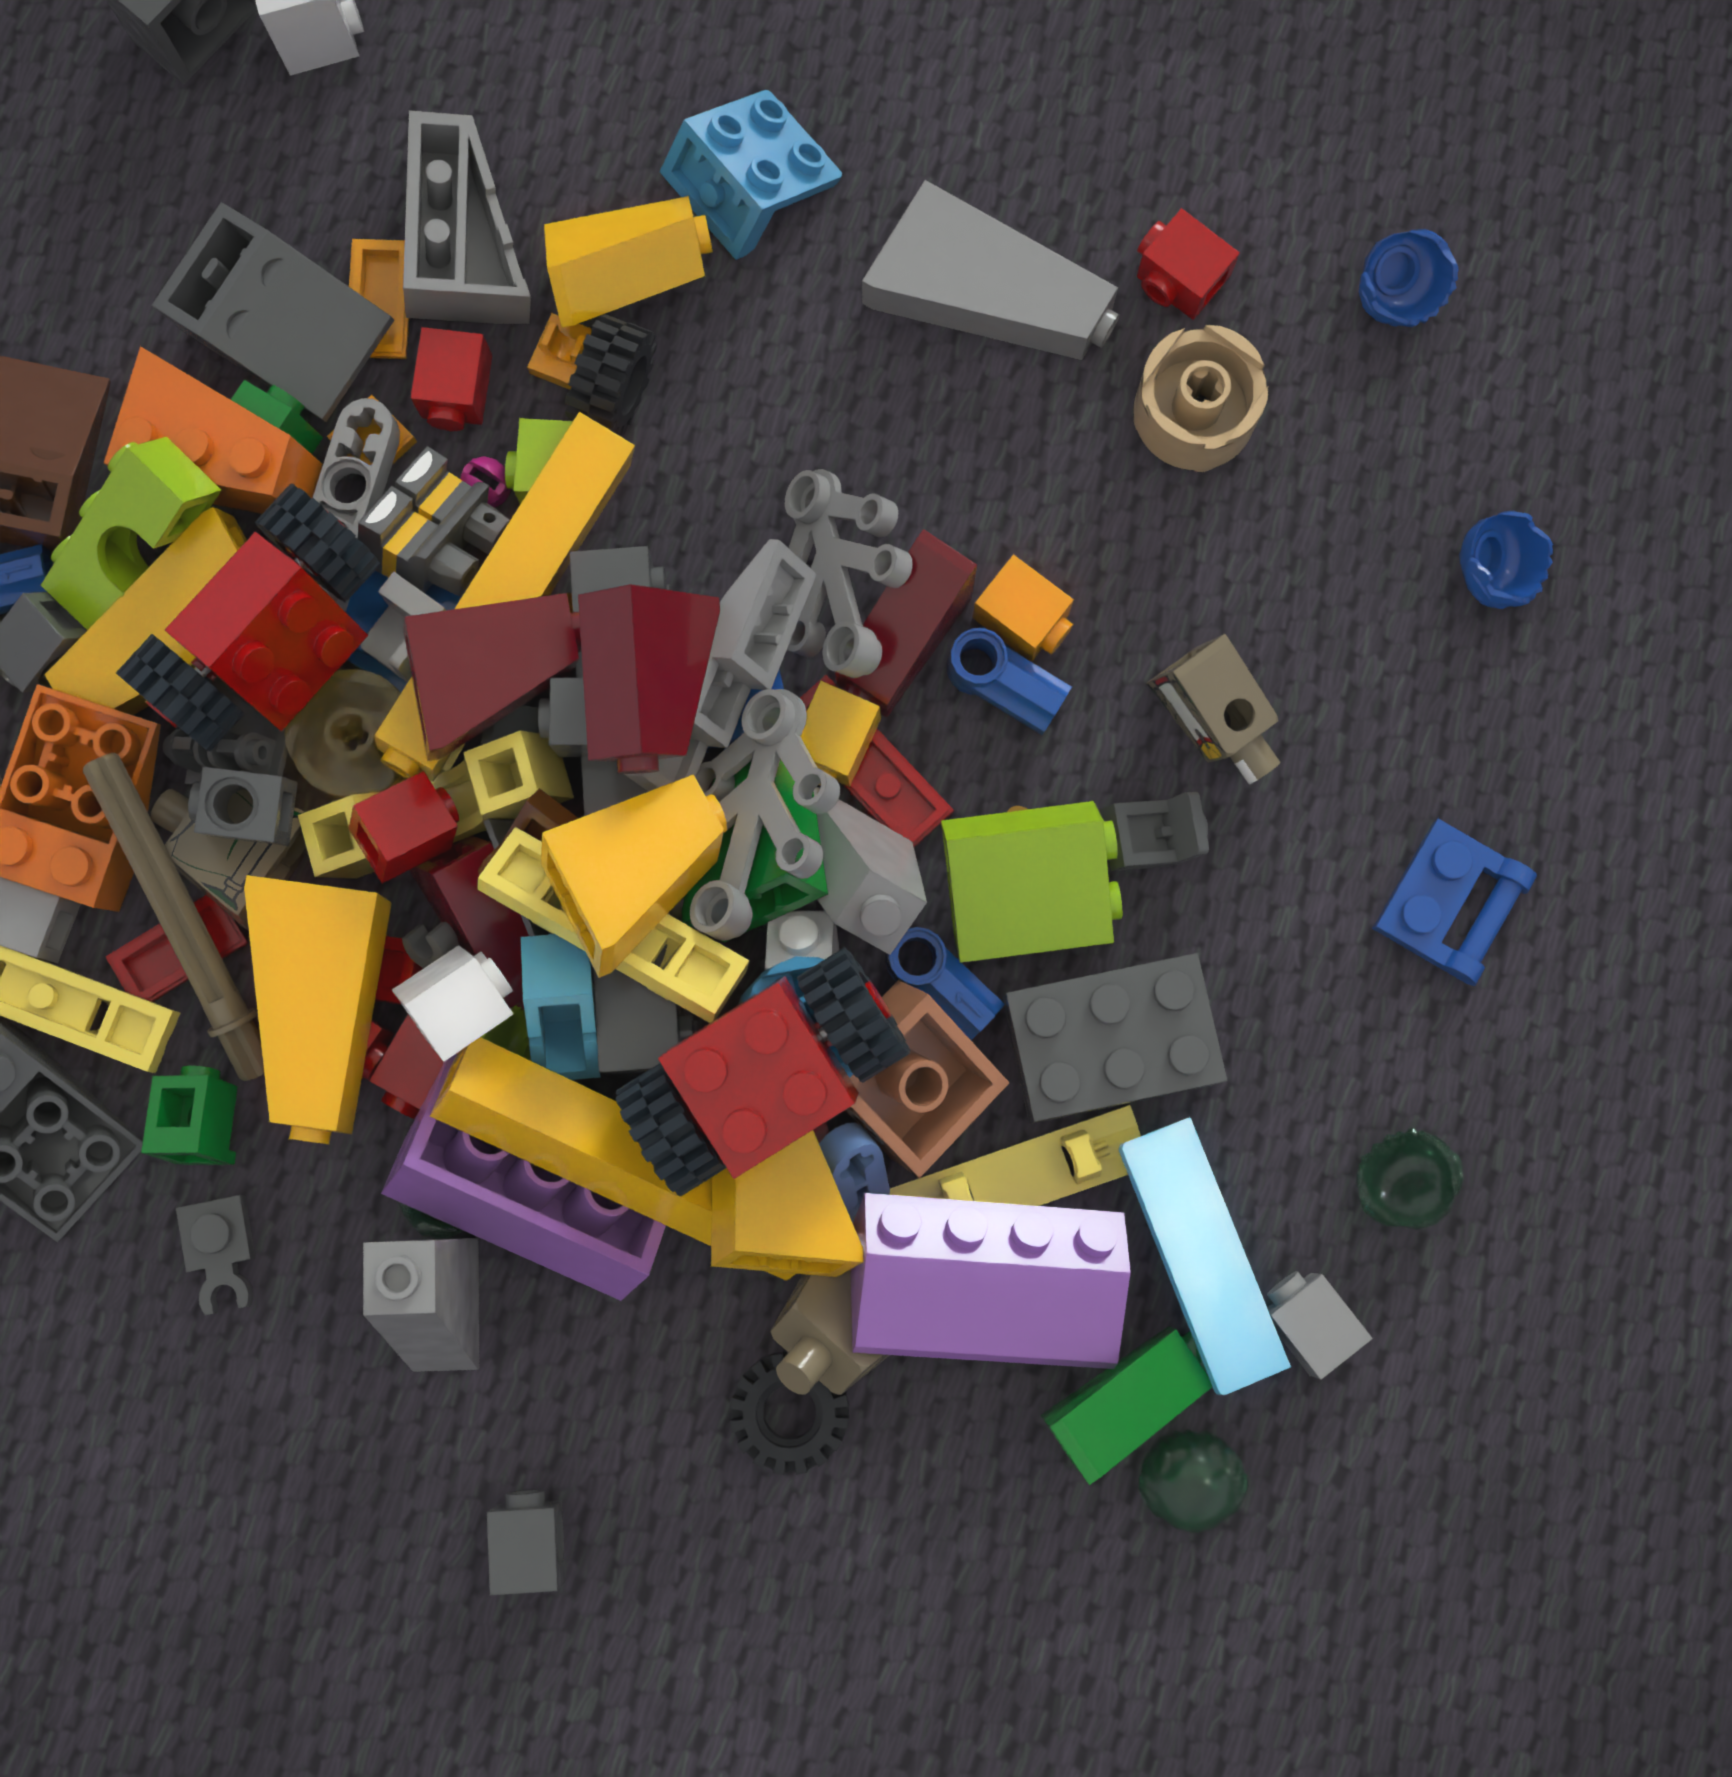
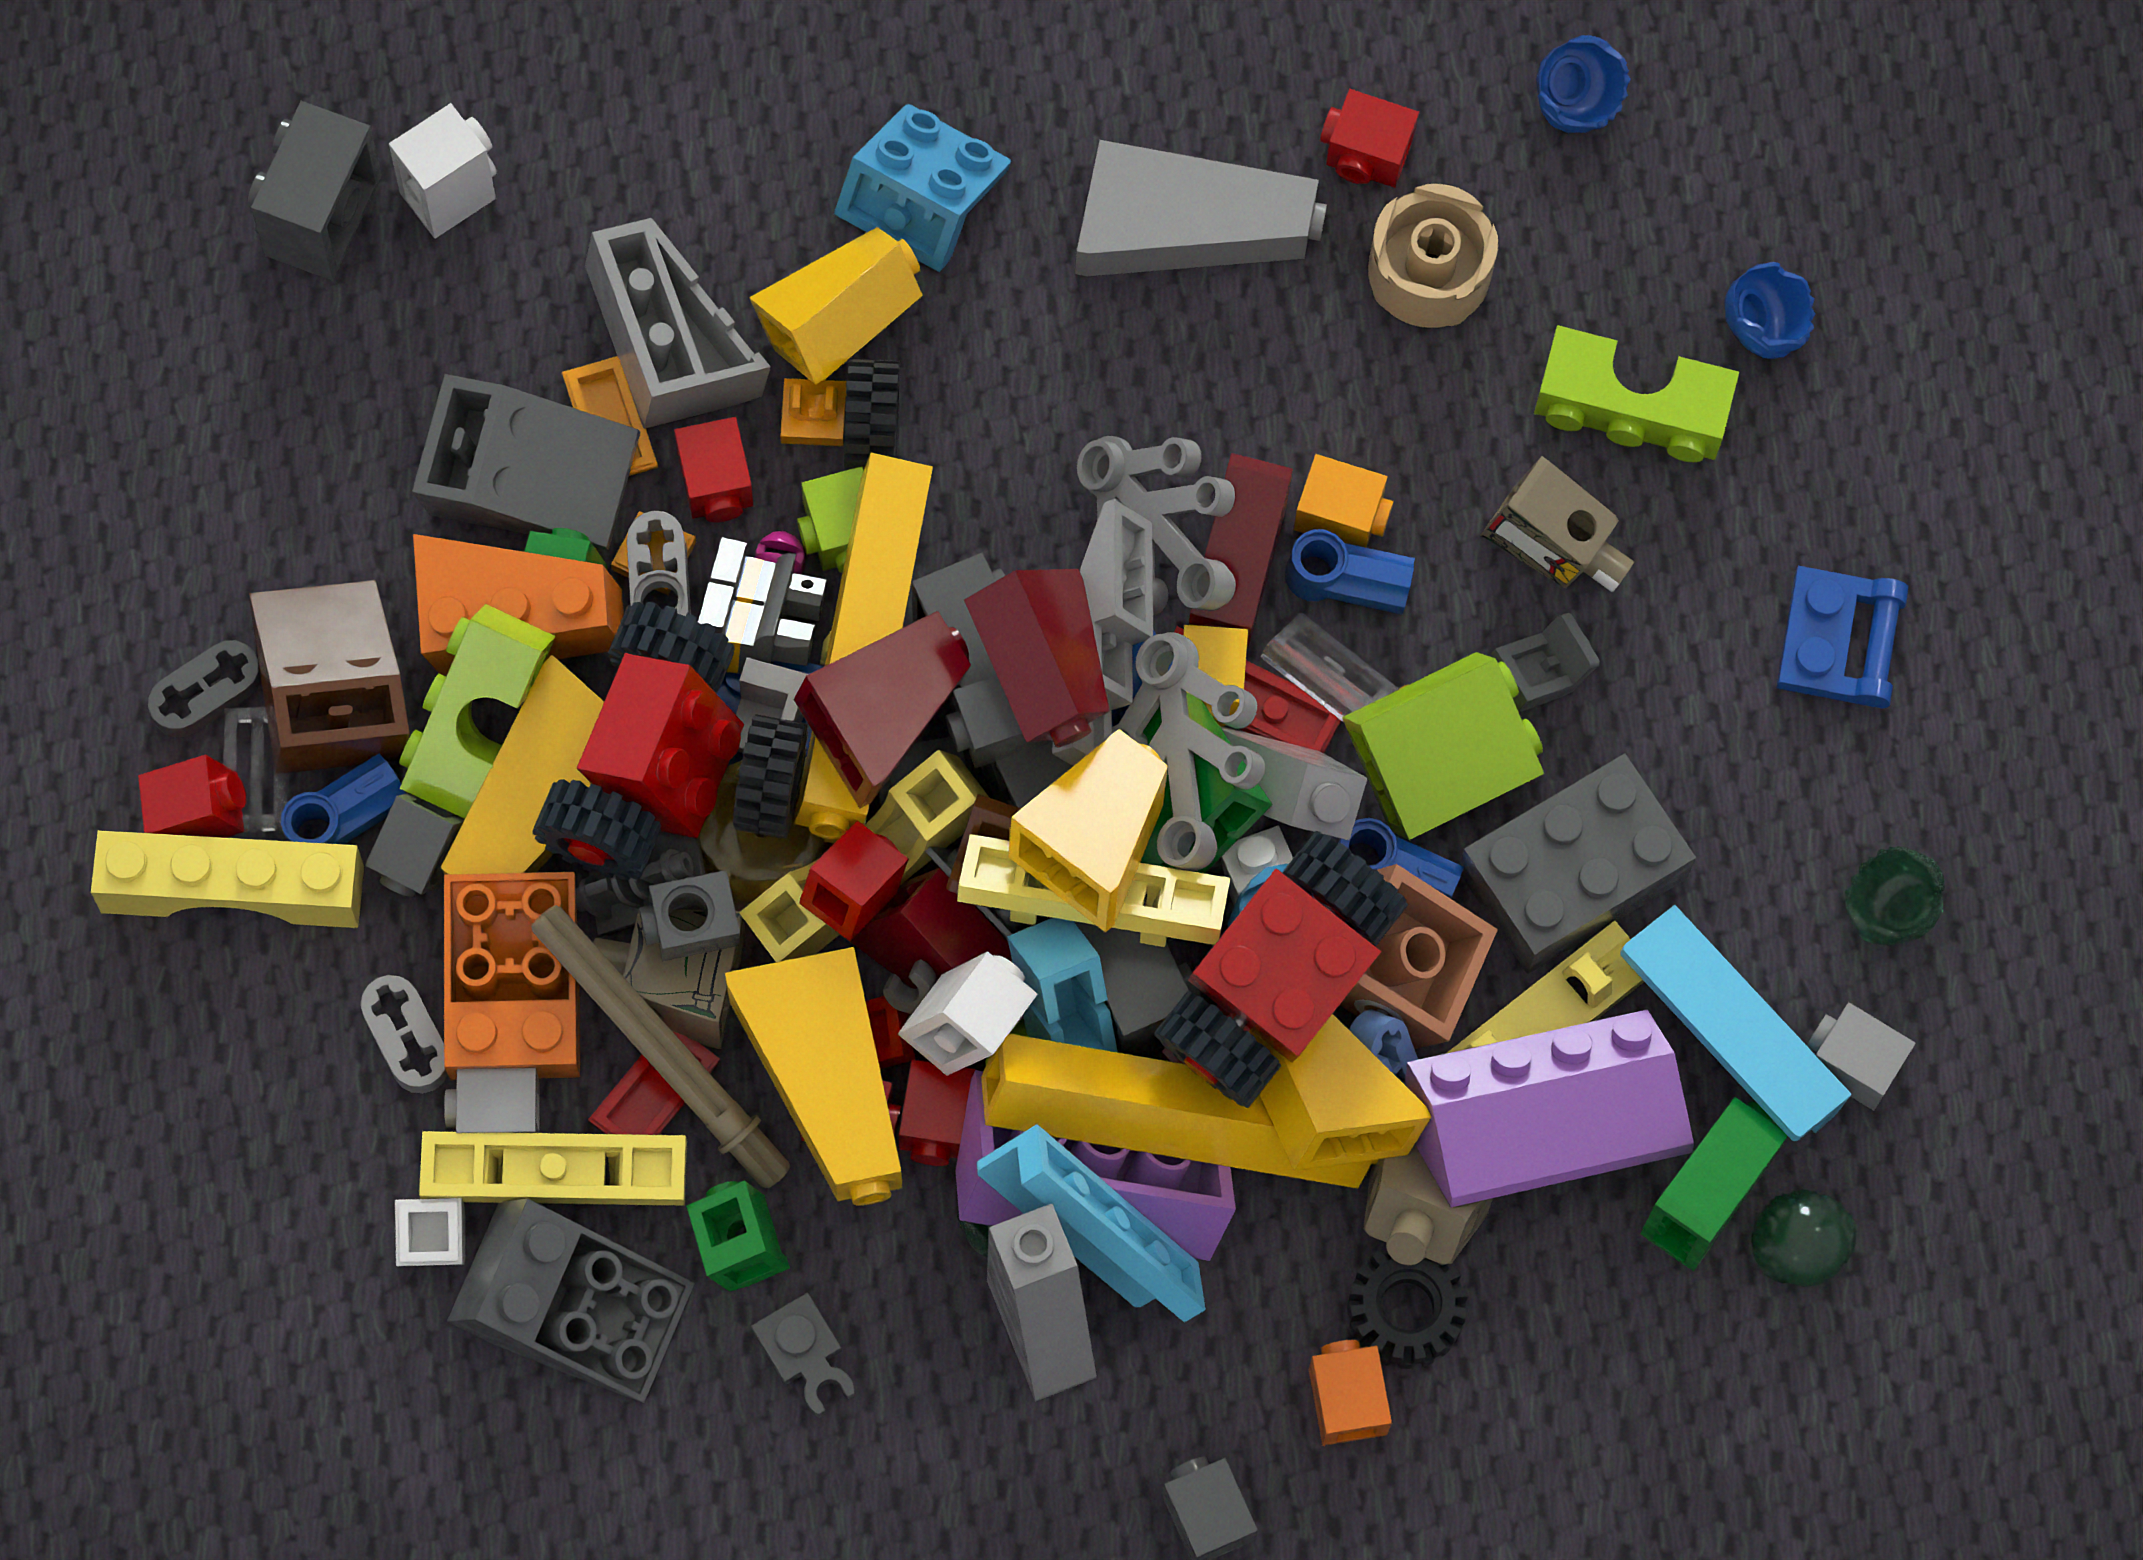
camera: 25 degrees left, 10 degrees down
(353, 698) = (770, 776): none -> black tyre
(504, 1249) = (1097, 1222): none -> medium azure panel
(701, 1478) = (1349, 1392): none -> orange brick
(944, 772) = (1327, 672): none -> clear tile
(1382, 635) = (1584, 391): none -> lime arch

